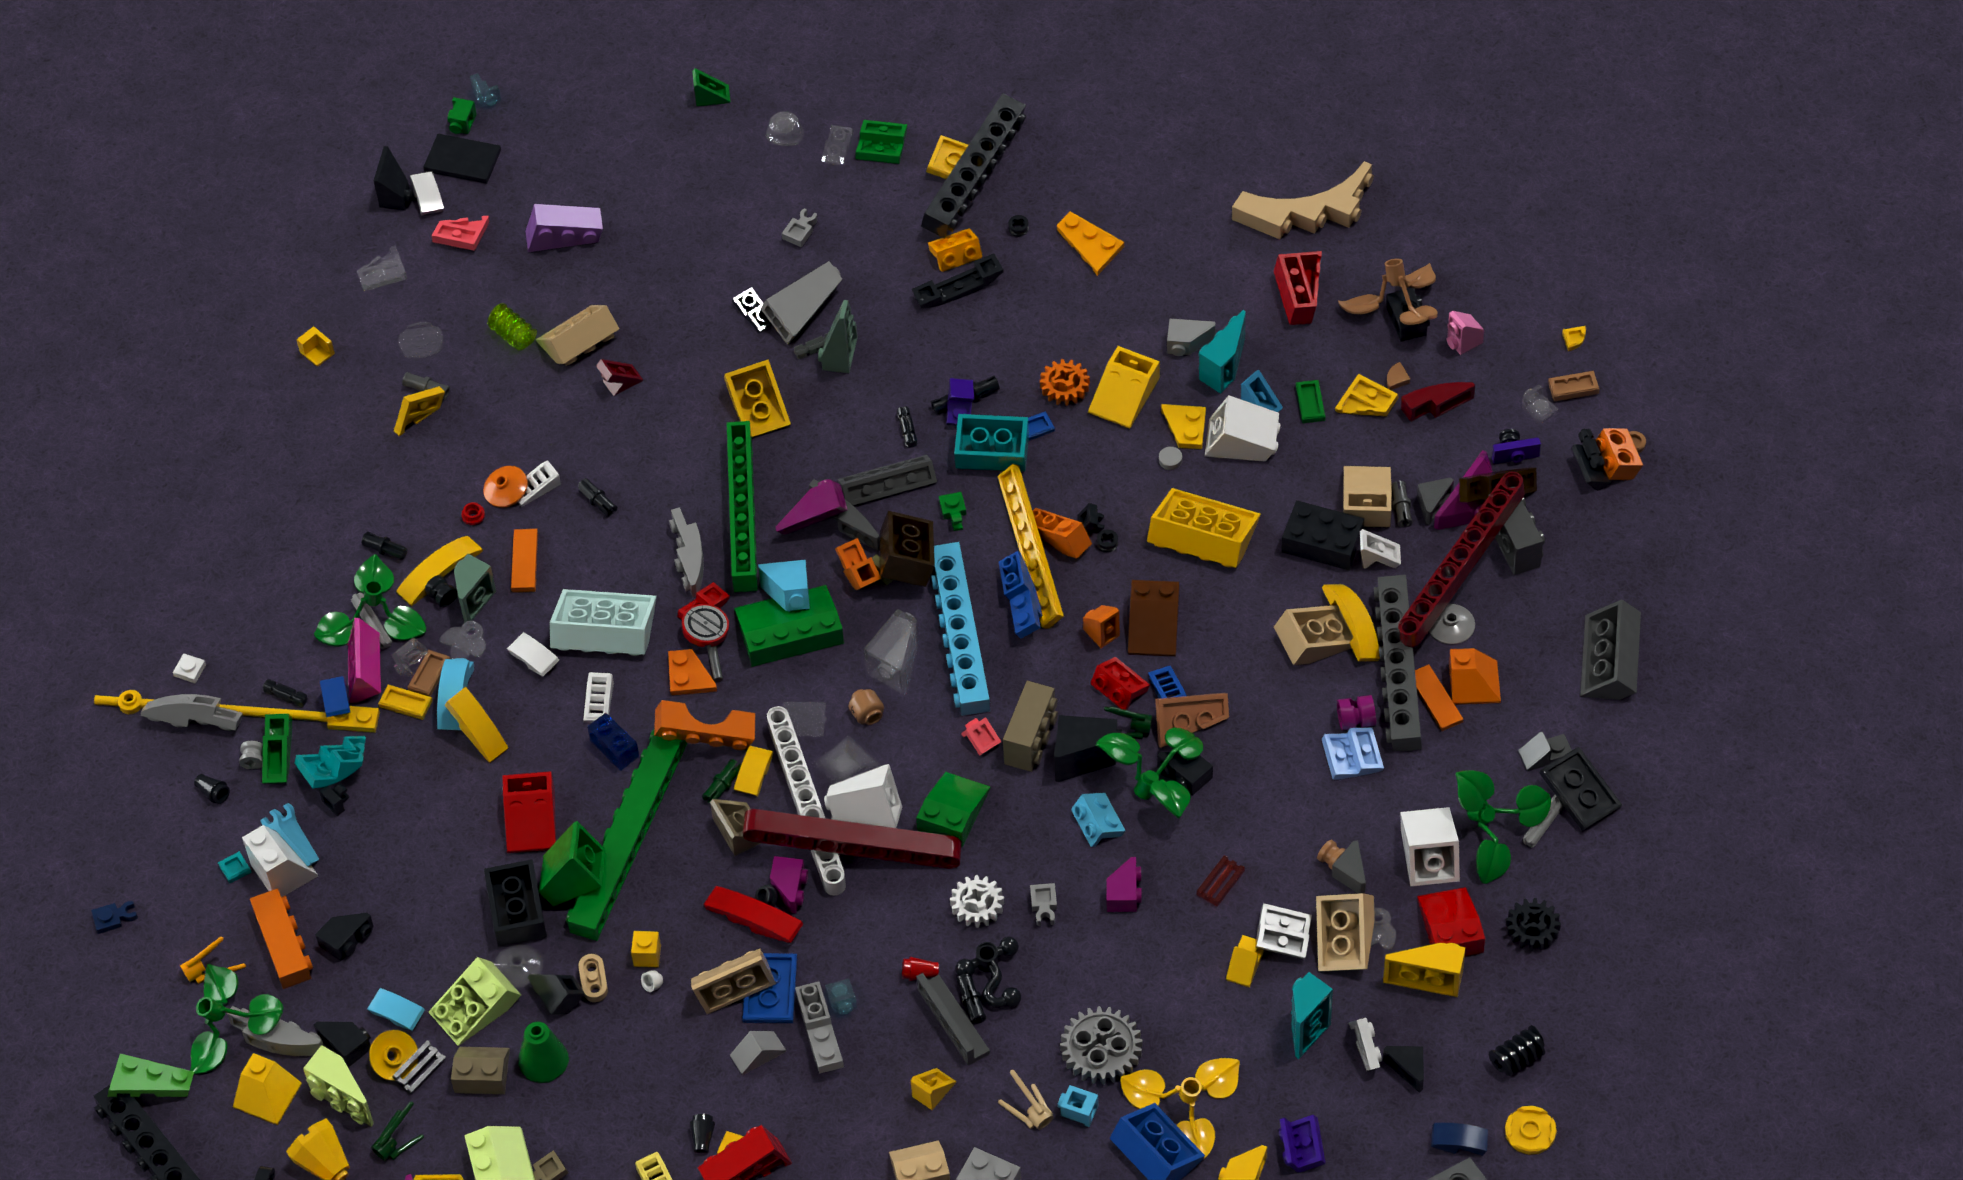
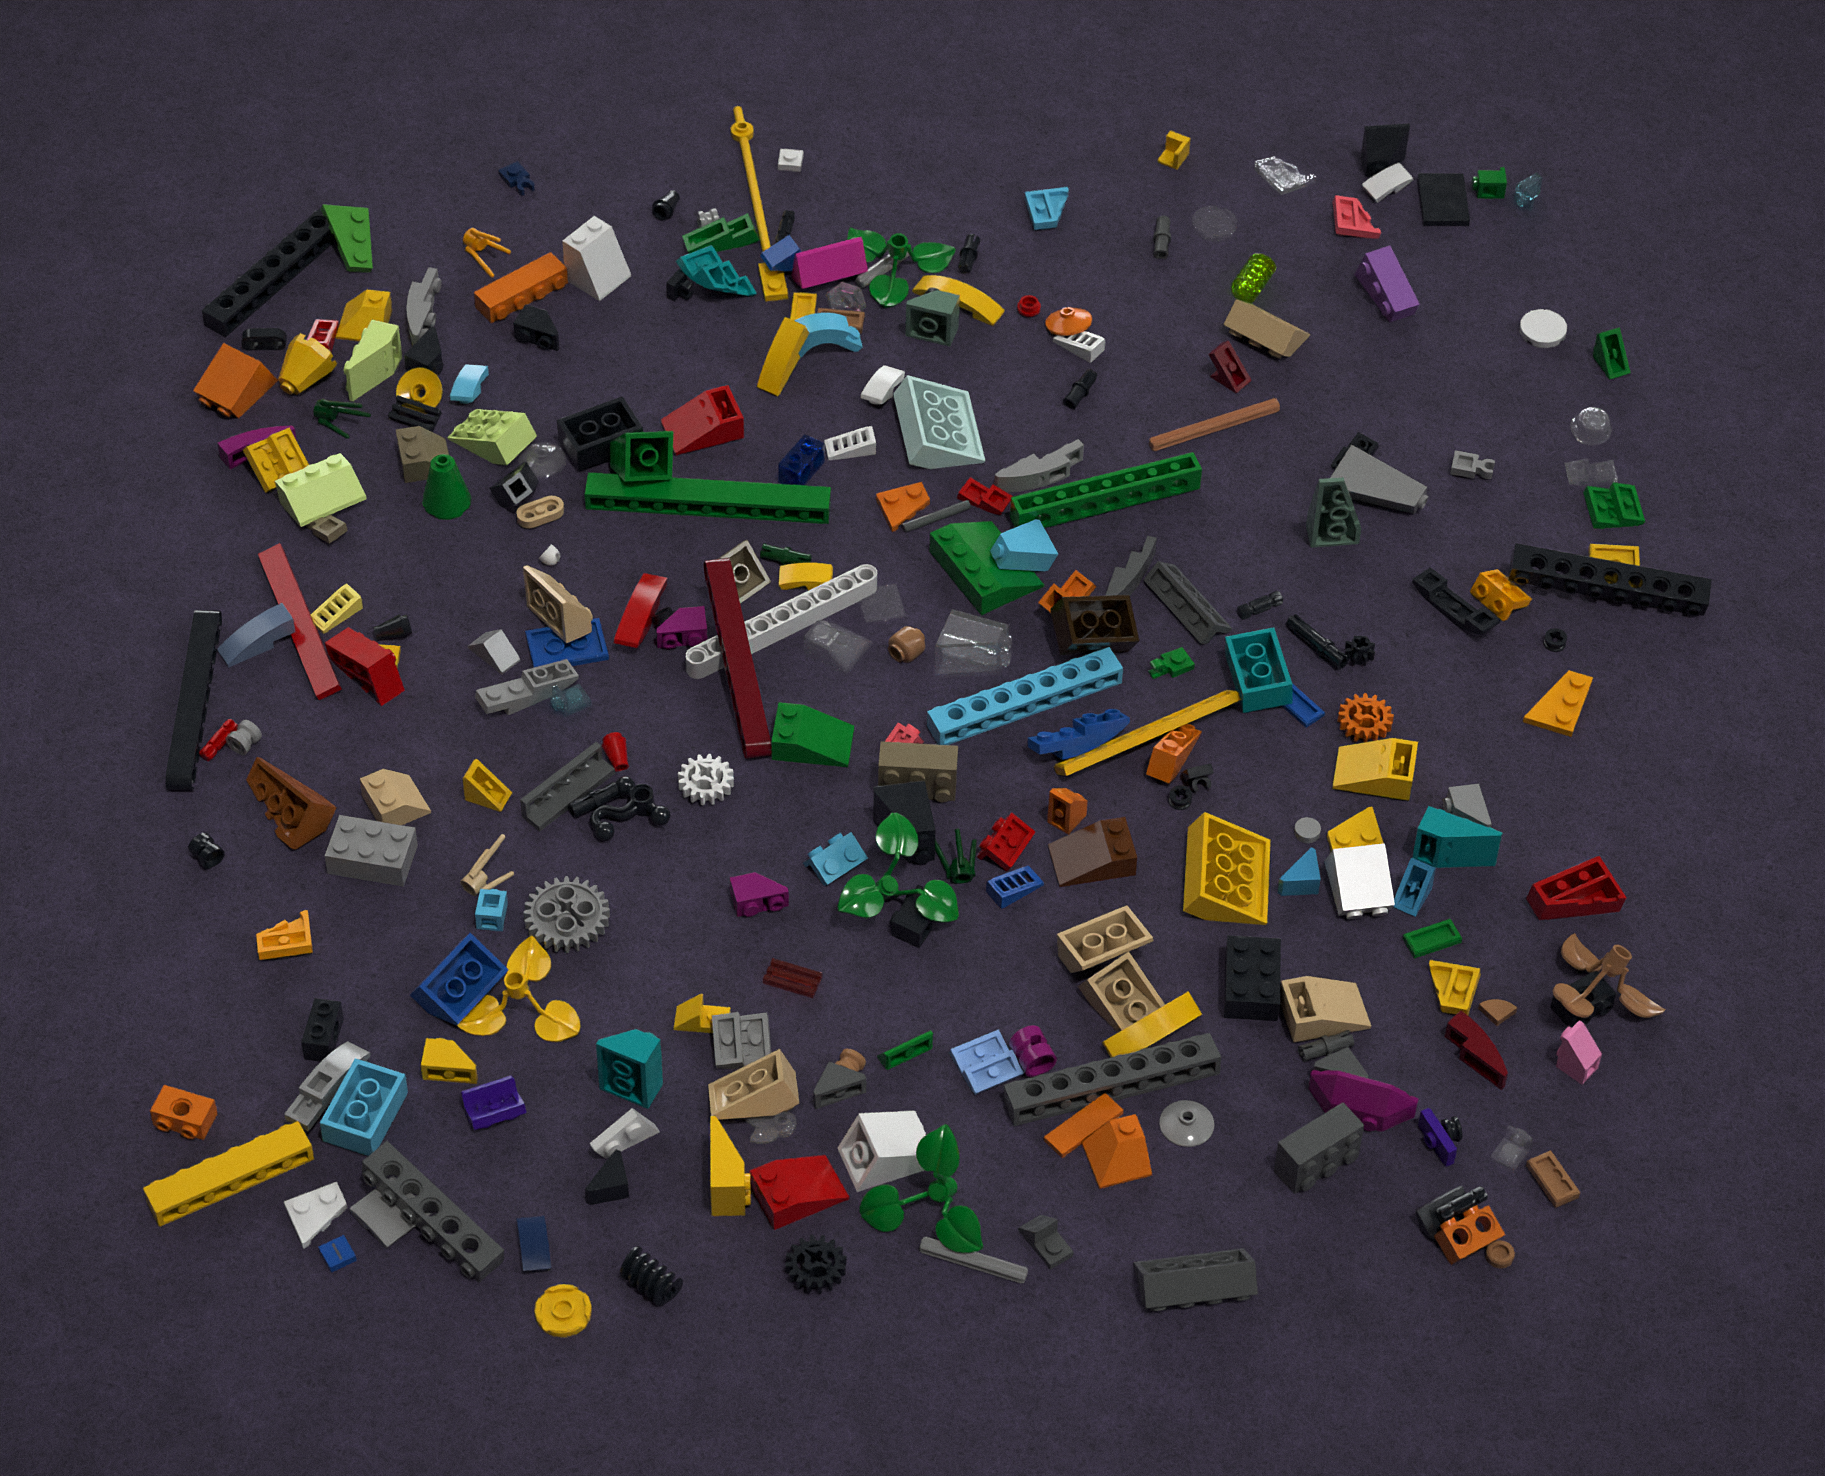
camera: 70 degrees right, 5 degrees down
(184, 708) = (742, 170): light grey slope -> none
(219, 985) = (419, 251): green plant -> none
(290, 1134) = (326, 338): none -> red slope
(292, 833) = (628, 266): medium azure flag -> none
(347, 468) = (1046, 206): none -> medium azure wing
(418, 407) = (1131, 235): yellow wing -> none
(463, 644) = (885, 336): clear plate -> none
(524, 560) = (990, 356): orange tile -> none
(646, 949) = (578, 539): yellow brick -> none
(652, 130) = (1543, 328): none -> white tile
(676, 722) = (841, 544): orange arch -> none
(678, 406) = (1214, 424): none -> nougat axle
(705, 625) = (957, 499): tile -> none
(757, 398) = (1243, 477): yellow slope -> none
(815, 506) = (1120, 543): magenta slope -> none
(866, 799) = (785, 661): white slope -> none
(959, 399) = (1302, 634): dark purple slope -> none
(987, 365) = (1360, 650): none -> black gear
(1044, 901) = (723, 833): light grey plate -> none
(1190, 713) = (984, 906): nougat wing -> none
(1222, 470) = (1302, 877): none -> dark azure slope
(1263, 629) = (1101, 939): none -> tan slope
(1309, 213) = (1687, 887): tan arch -> none
(1322, 809) = (906, 1050): none -> green slope
(1378, 549) = (1250, 1029): white slope -> none
(1461, 568) = (1245, 1091): dark red beam -> none
(1481, 485) = (1379, 1126): dark brown slope -> none
(1574, 337) = (1625, 1169): yellow tile -> none
(1580, 788) = (1002, 1277): black tile -> none

